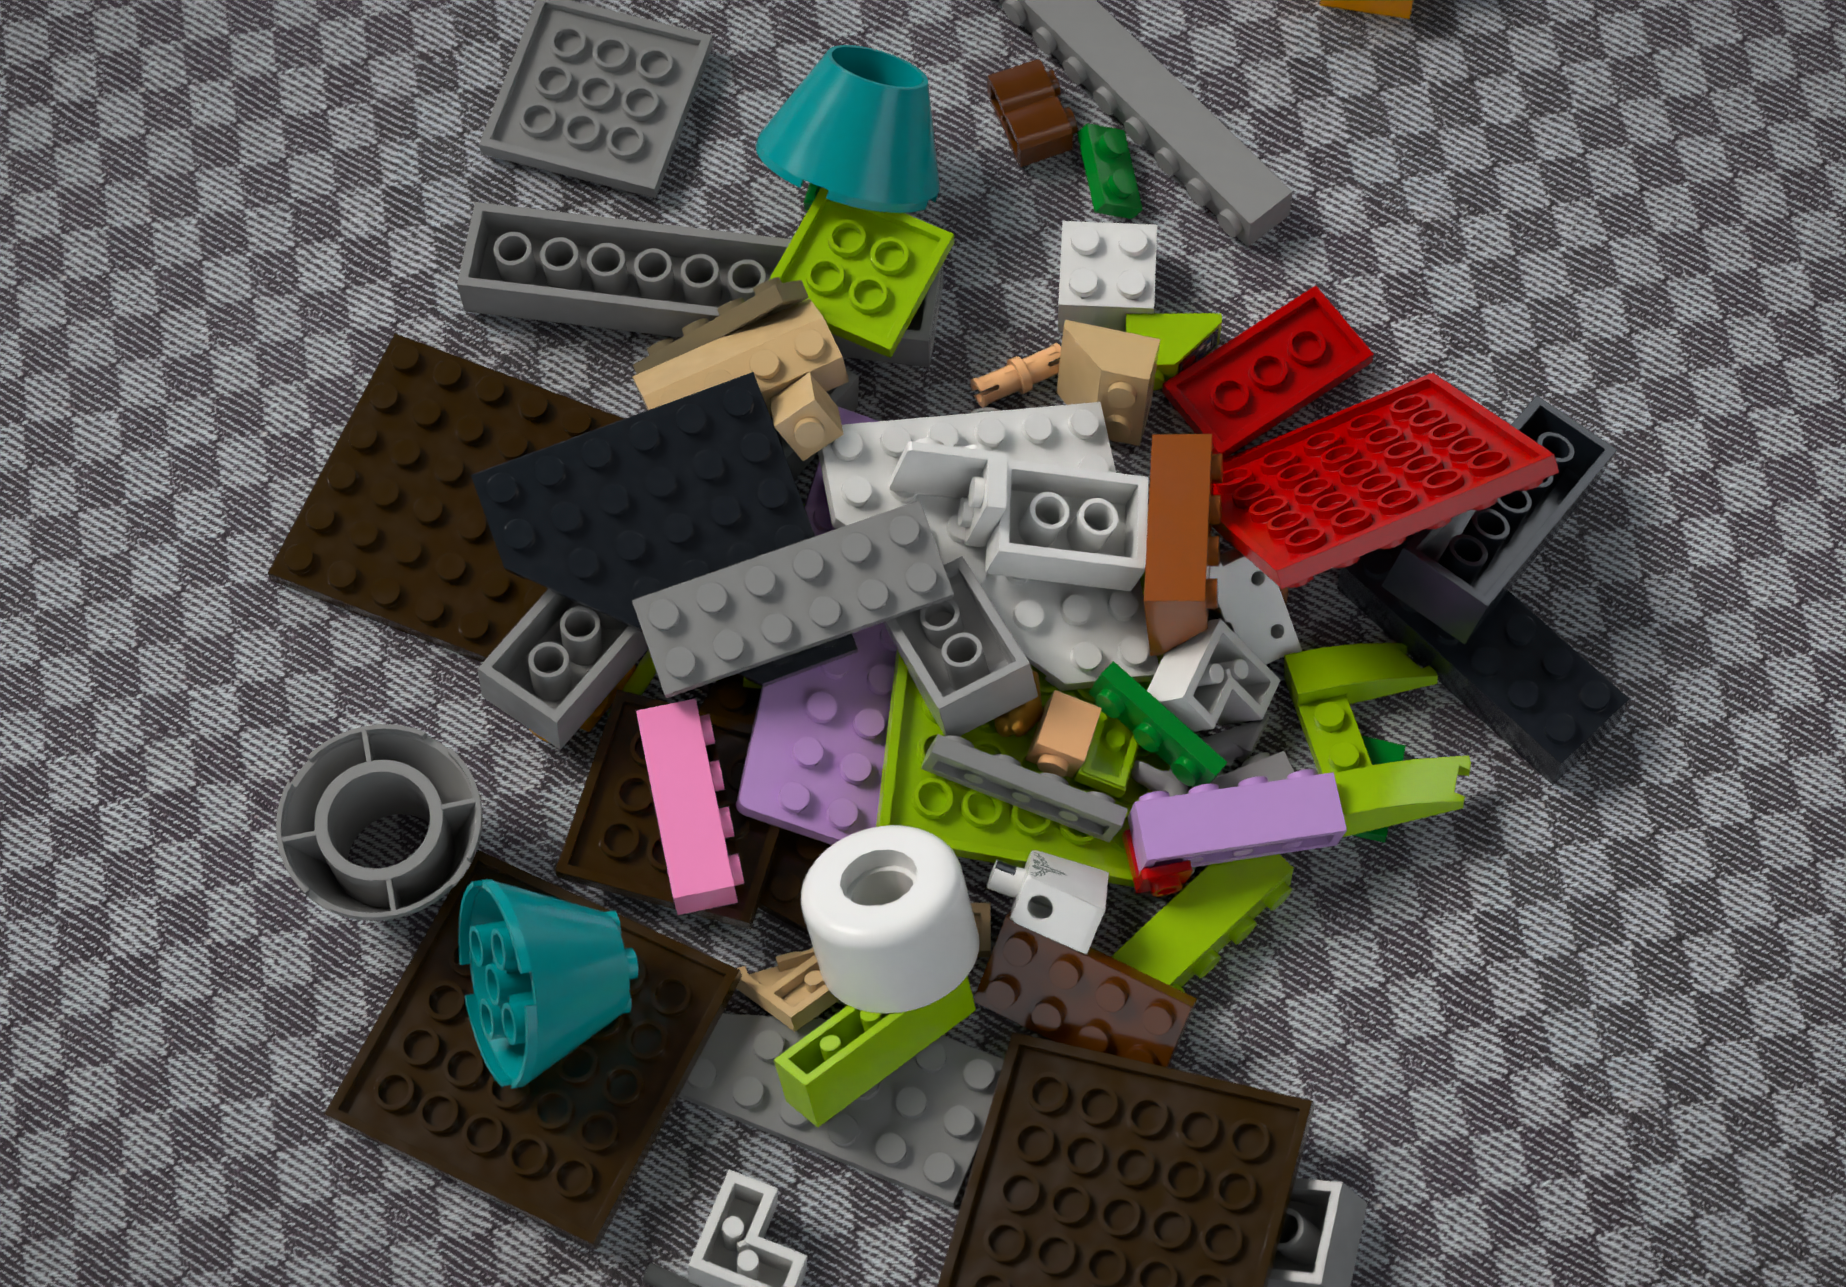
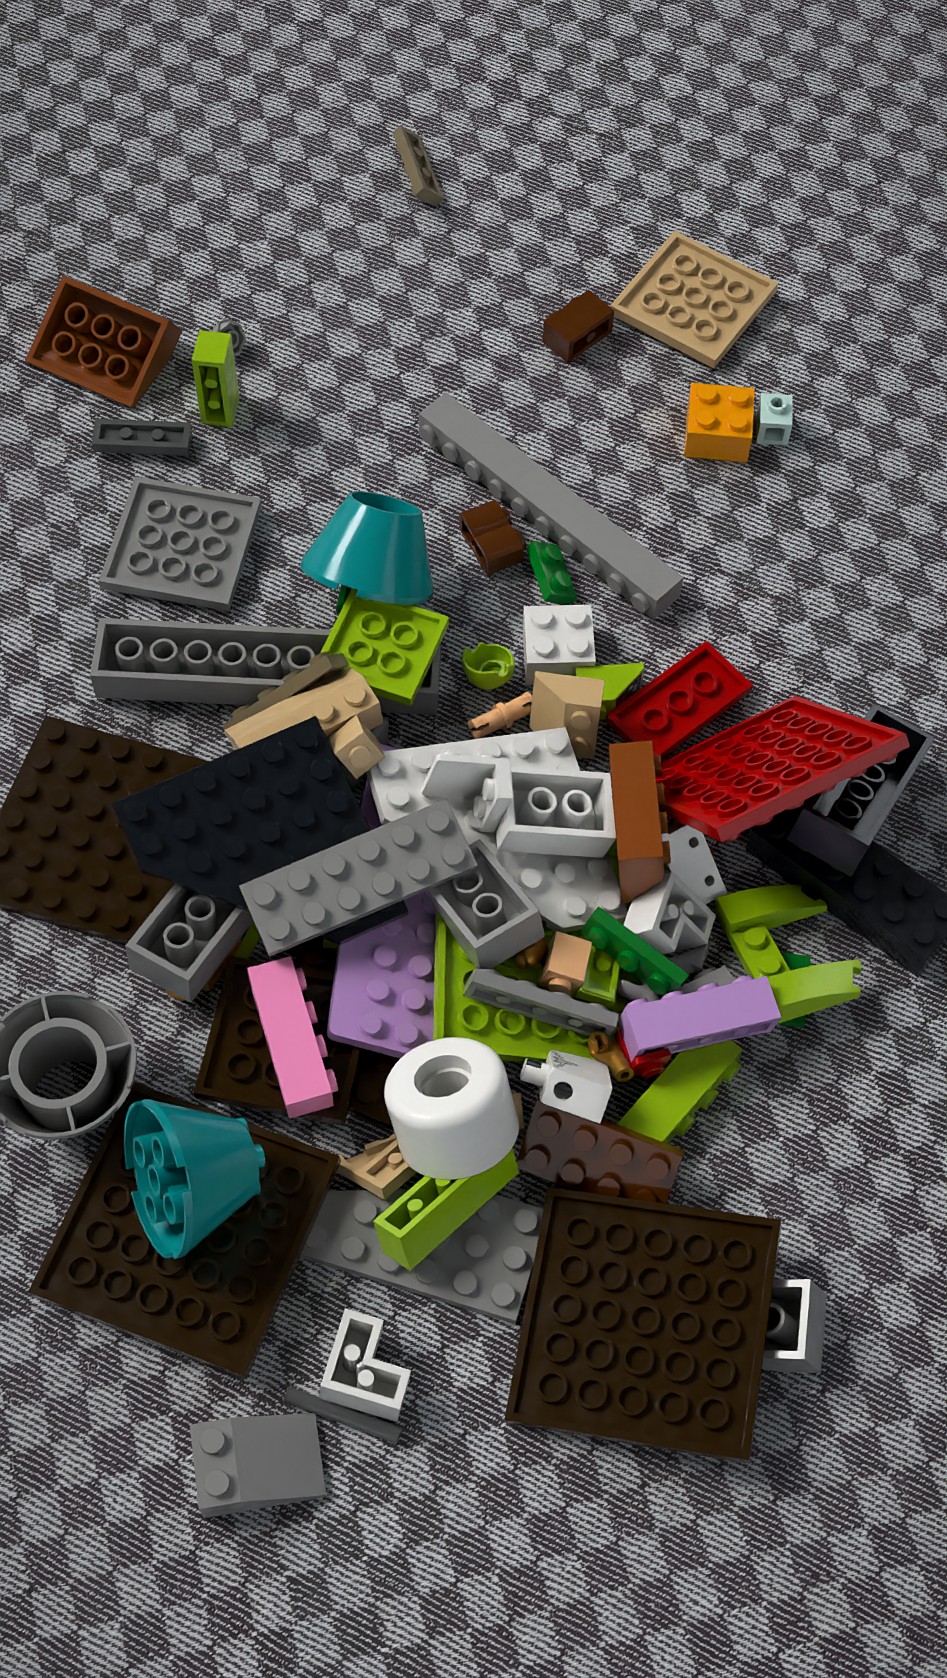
camera: 10 degrees left, 5 degrees down
(1006, 301) = (488, 665): none -> lime hair
(1113, 861) = (610, 1054): none -> pearl gold arm

